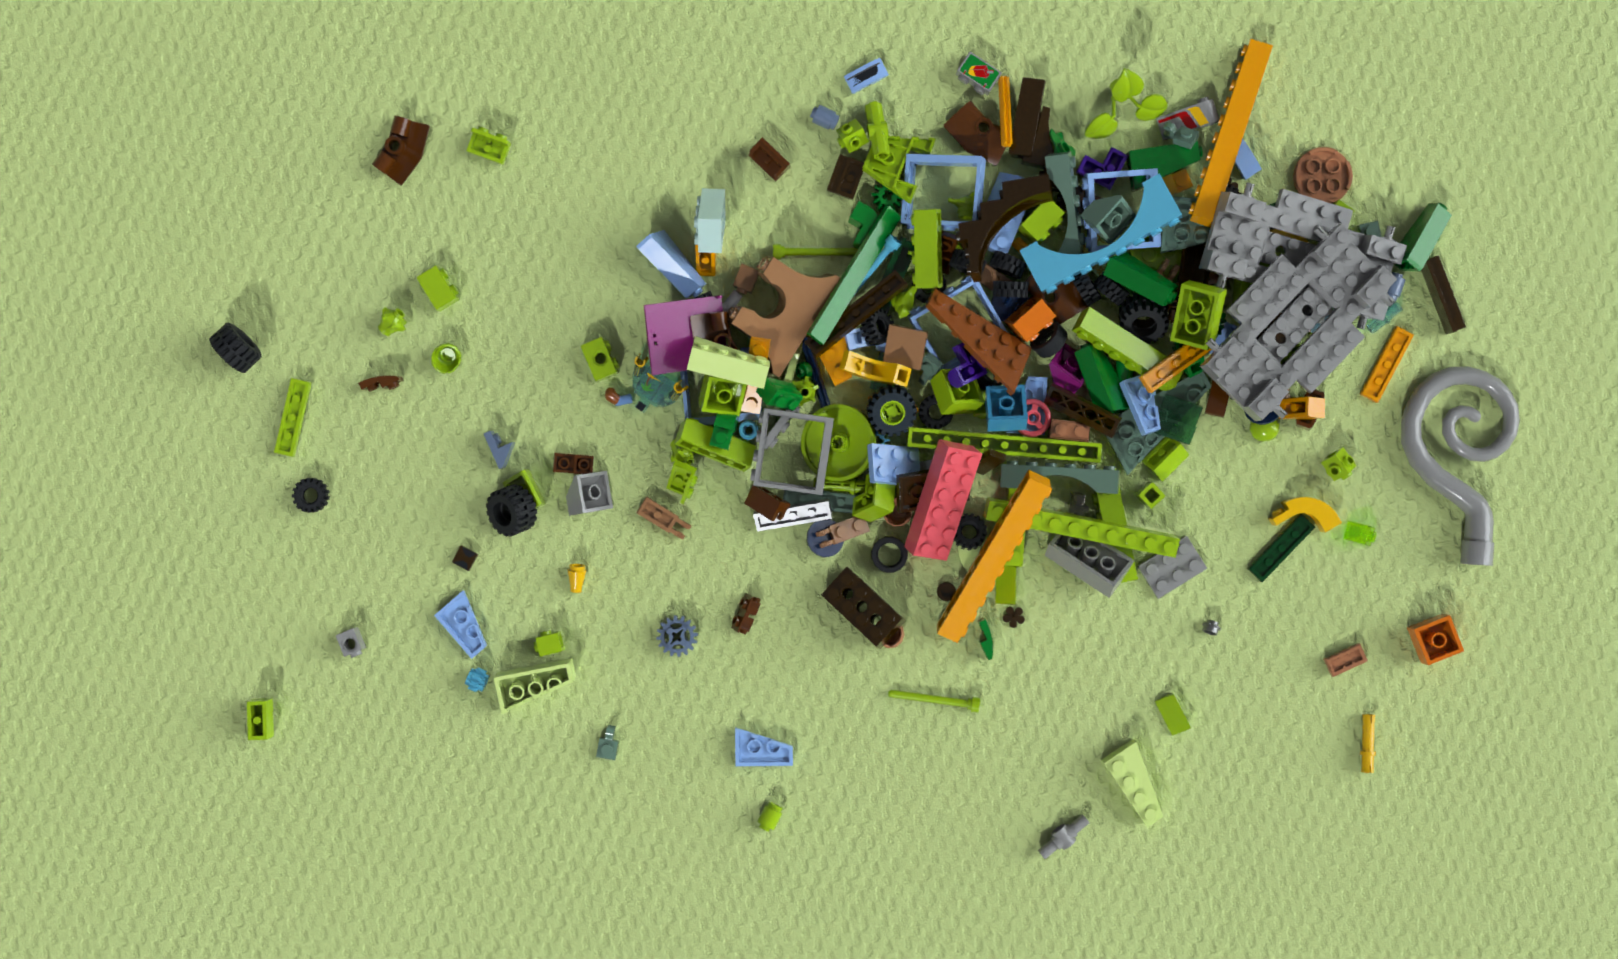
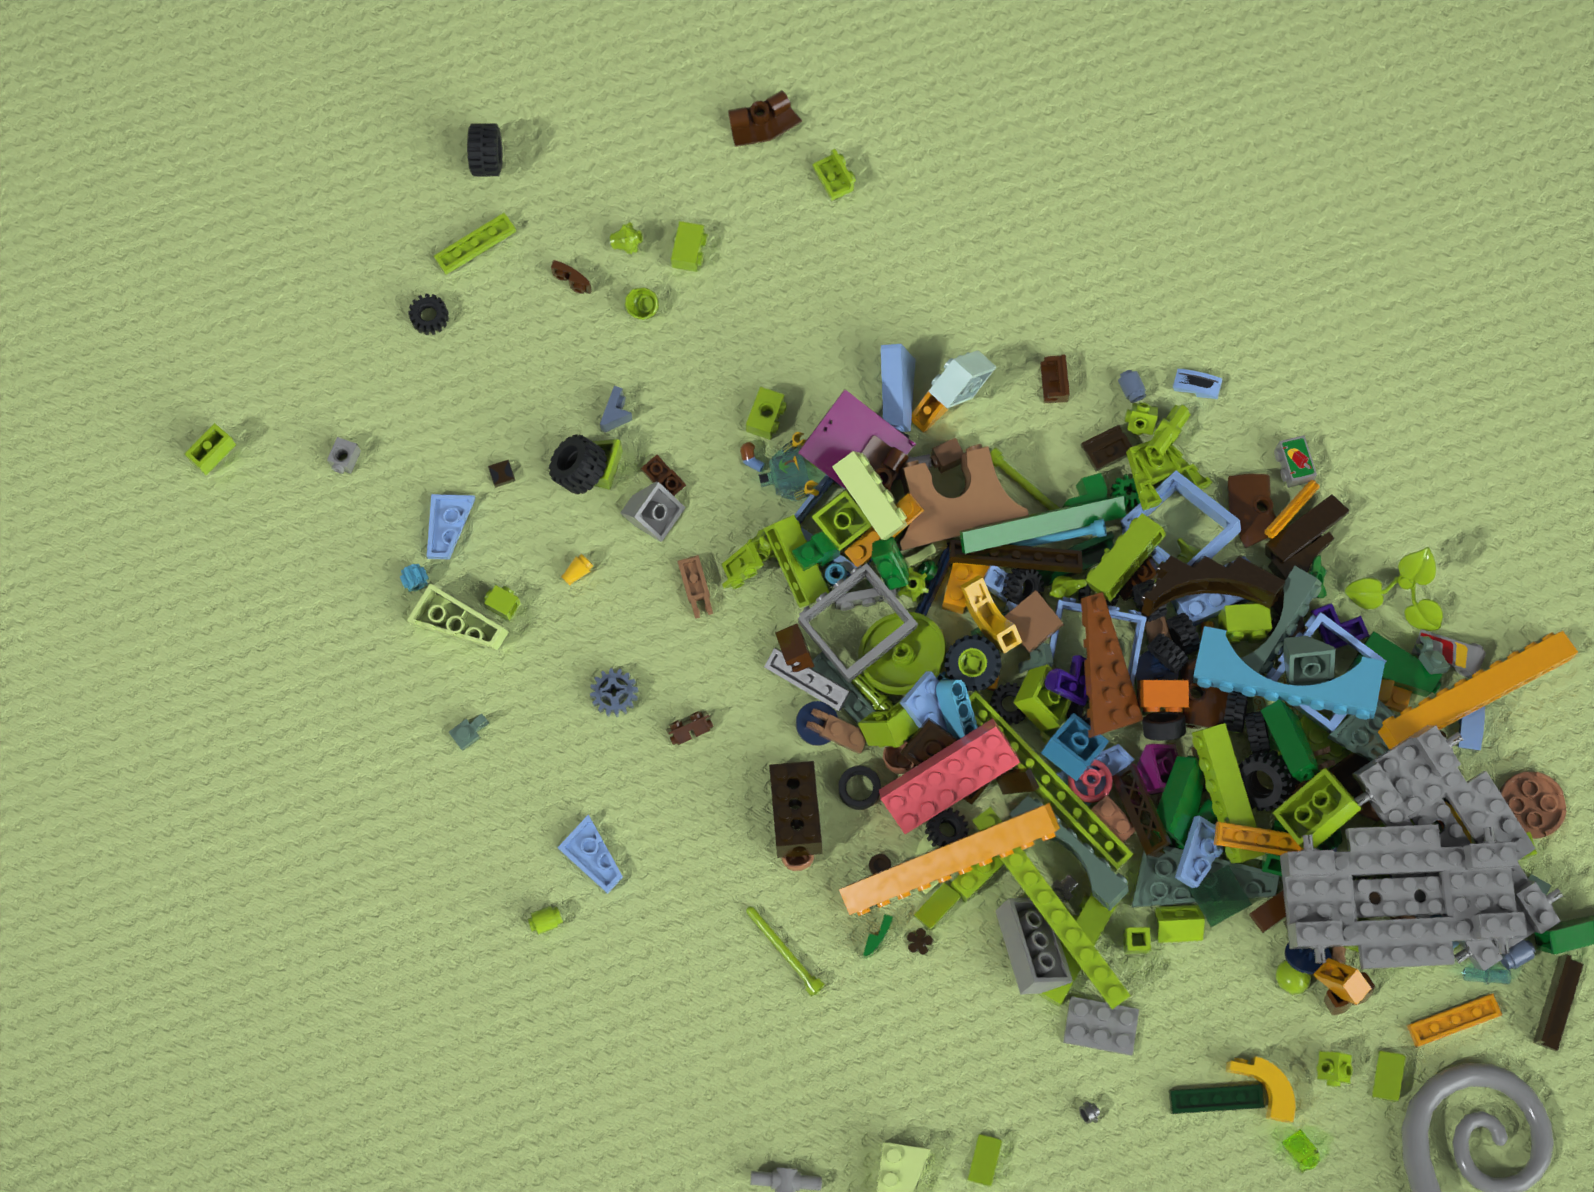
camera: 45 degrees right, 15 degrees down
(908, 452) = (956, 707): none -> medium azure beam
(1375, 437) = (1388, 1076): none -> lime slope

